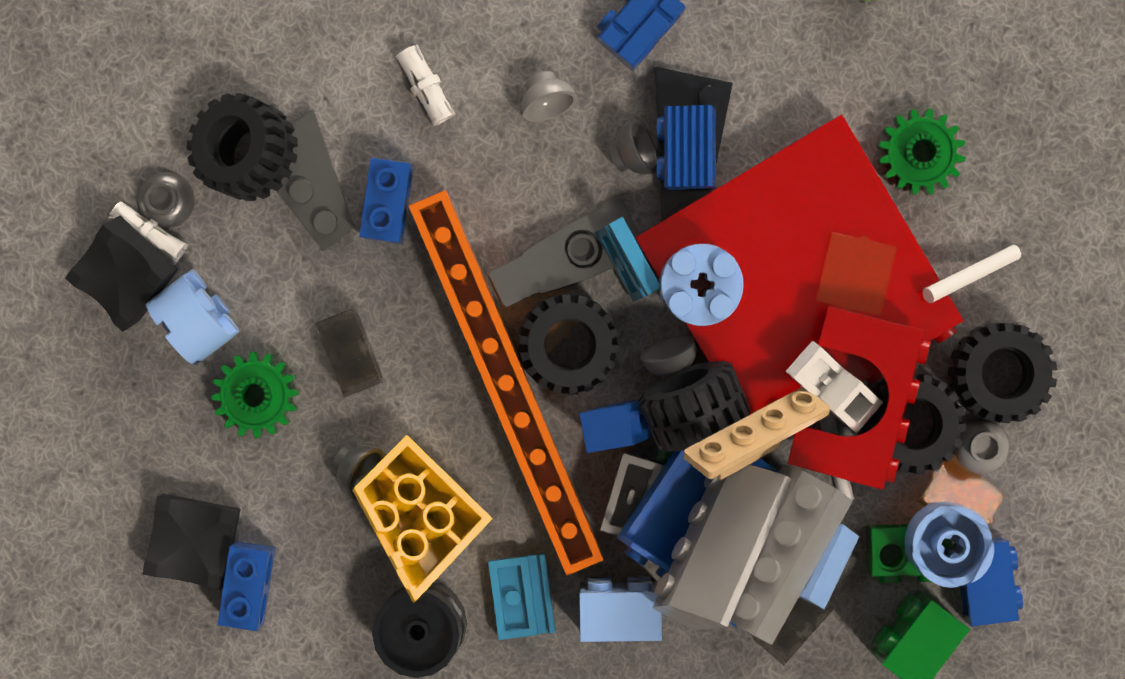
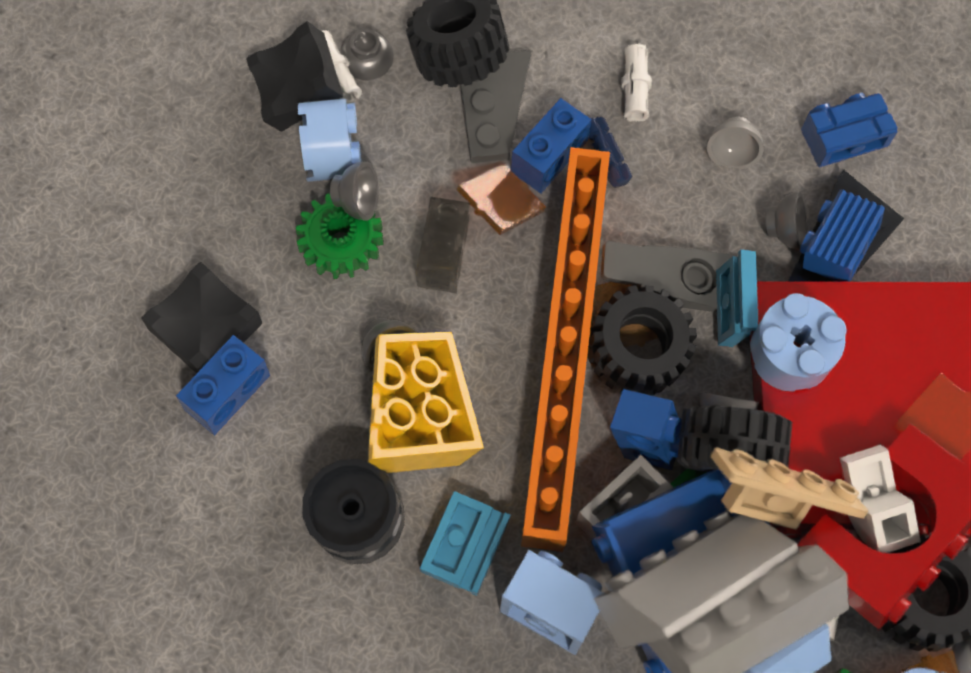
camera: 30 degrees right, 20 degrees down
(249, 357) = (356, 191): none -> flat silver piece
(373, 277) = (501, 199): none -> clear orange piece
(439, 171) = (619, 173): none -> dark blue axle

